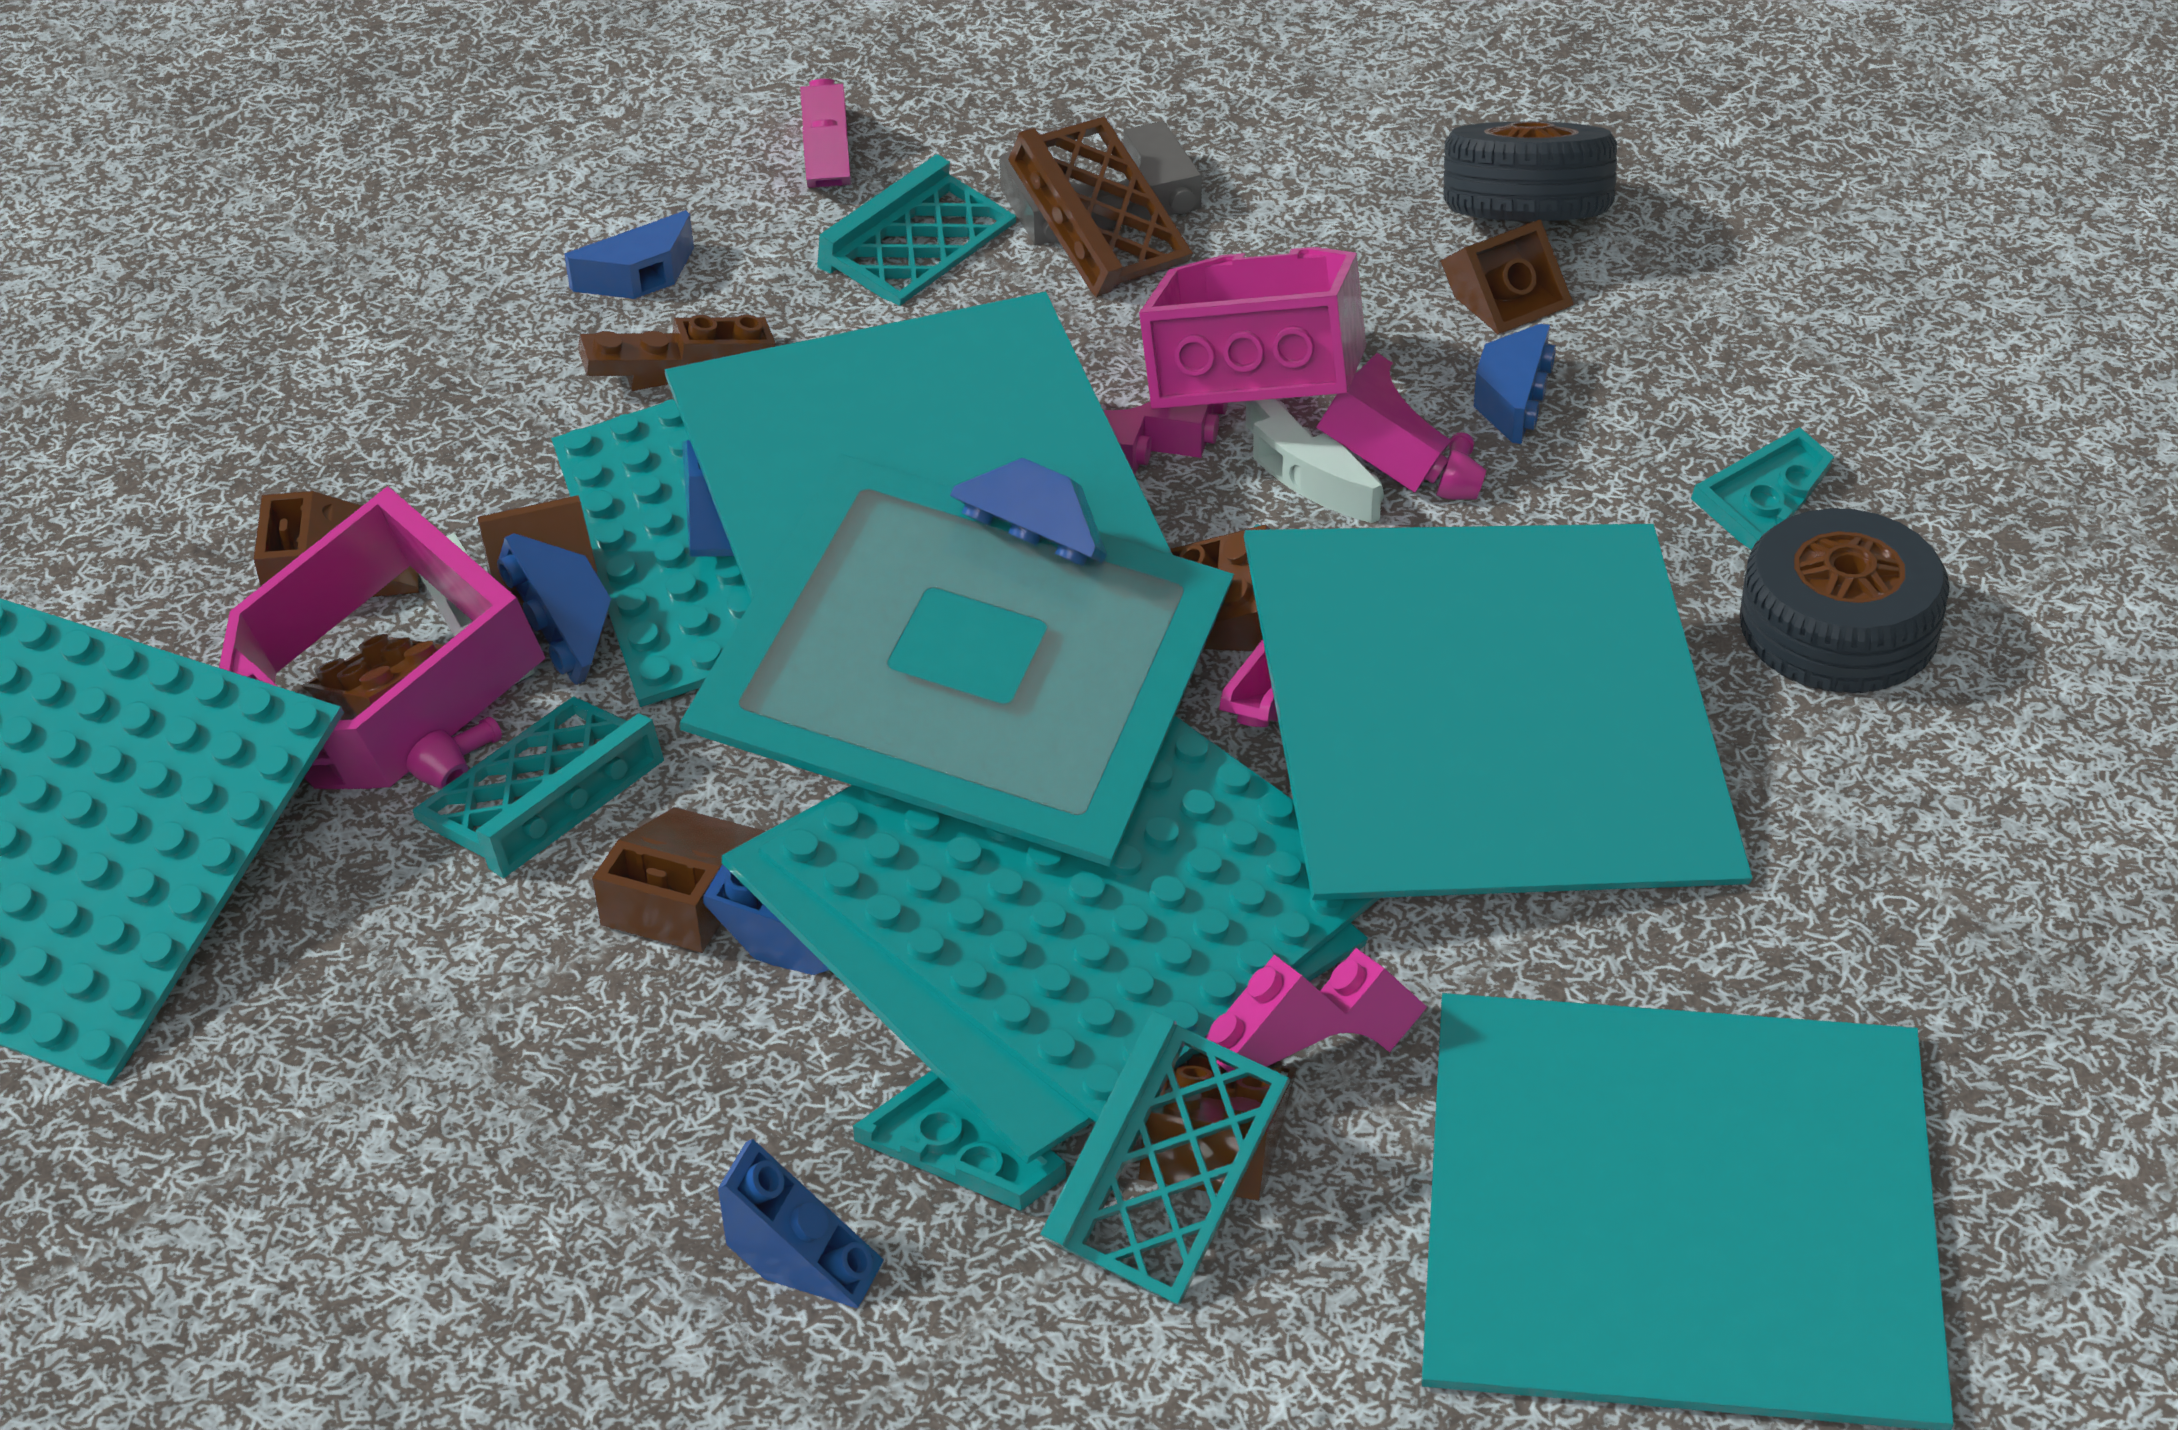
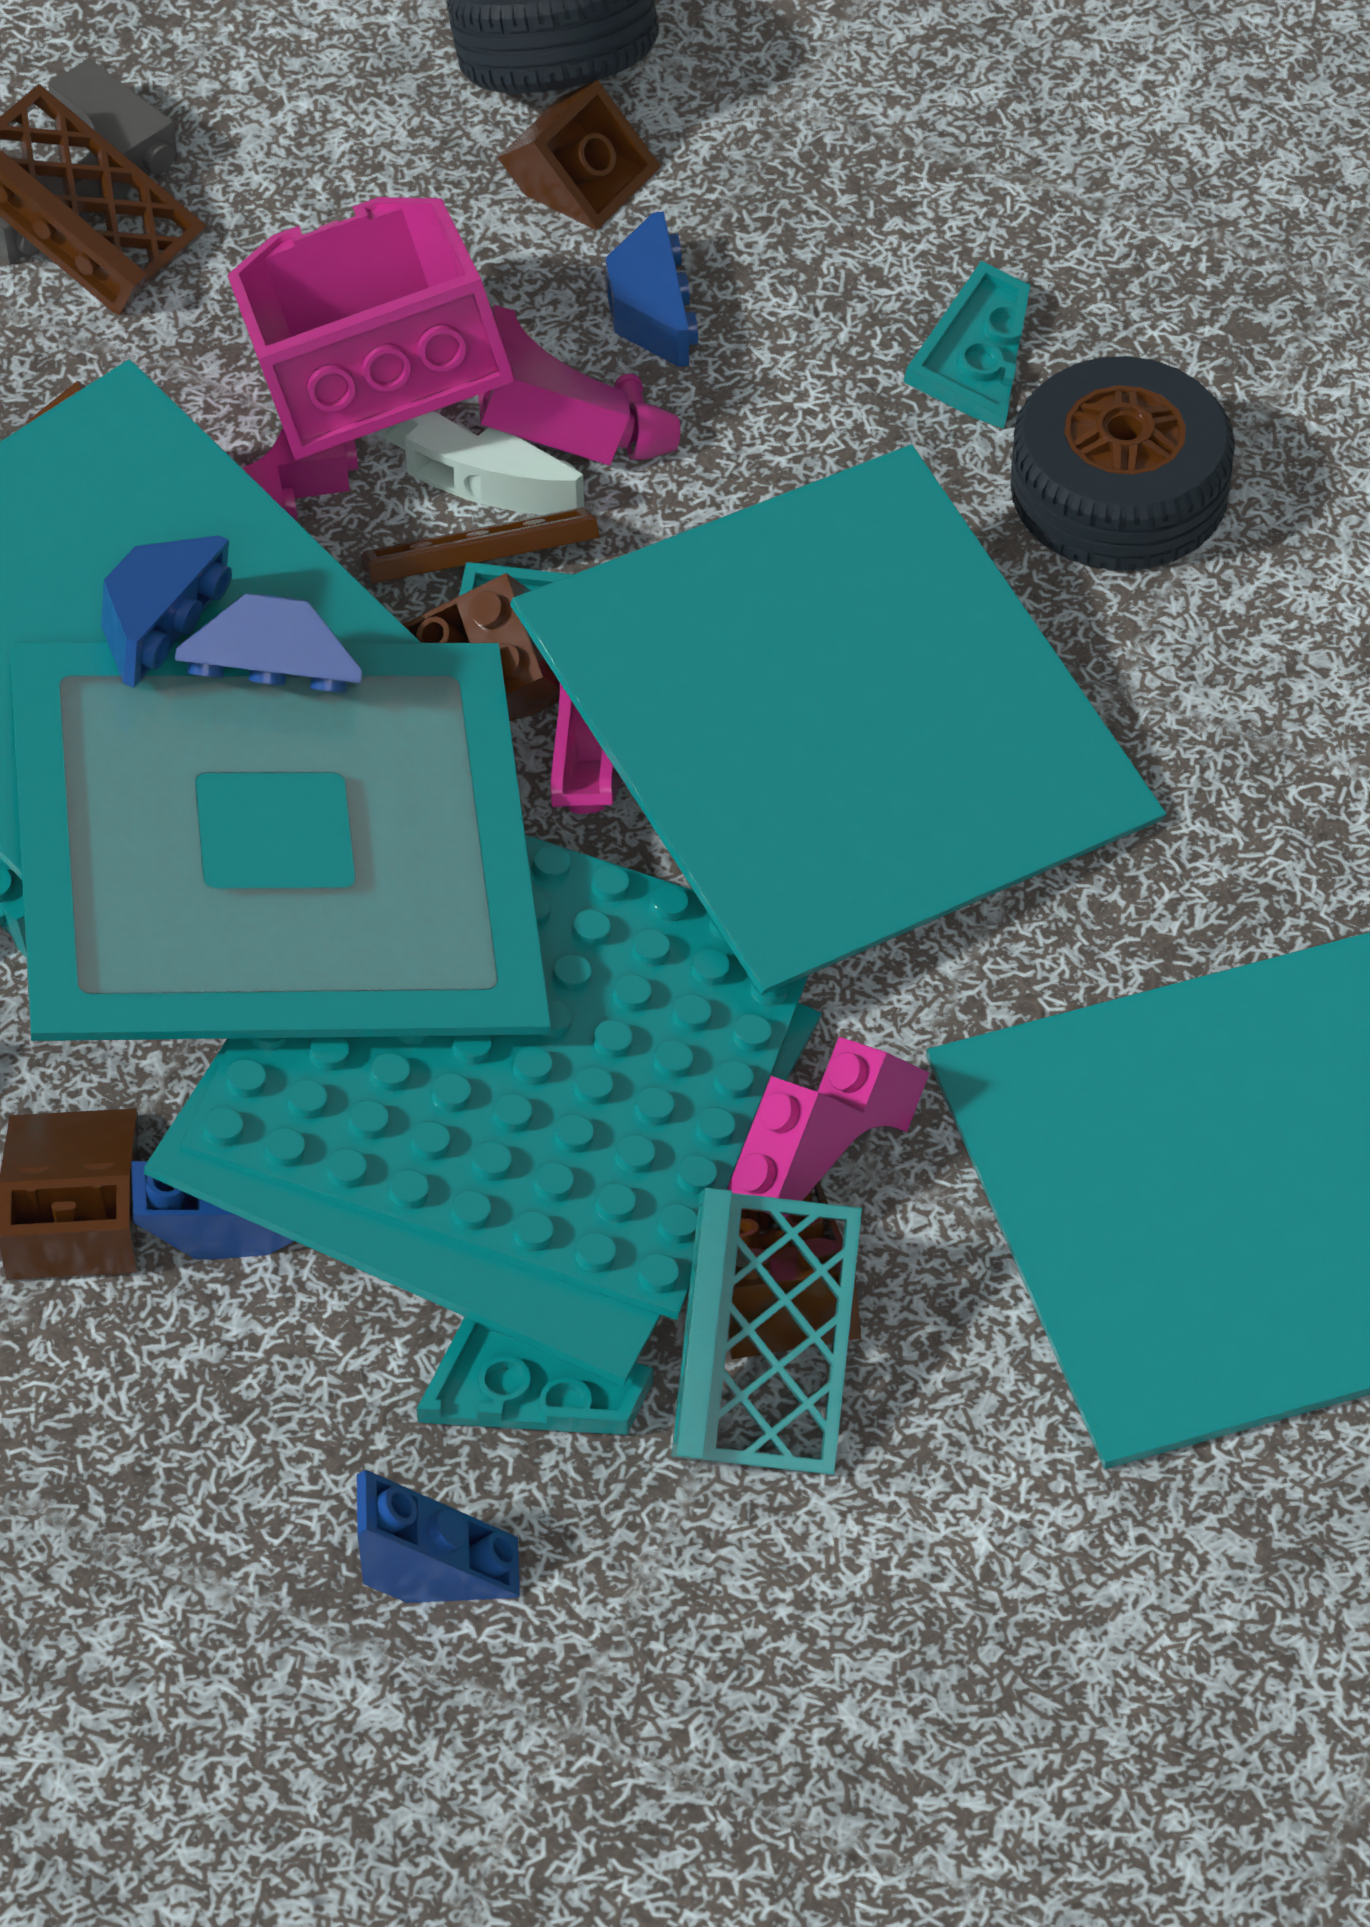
camera: 25 degrees left, 10 degrees up
(967, 446) = (159, 597): none -> blue slope
(1272, 516) = (479, 544): none -> reddish brown tile

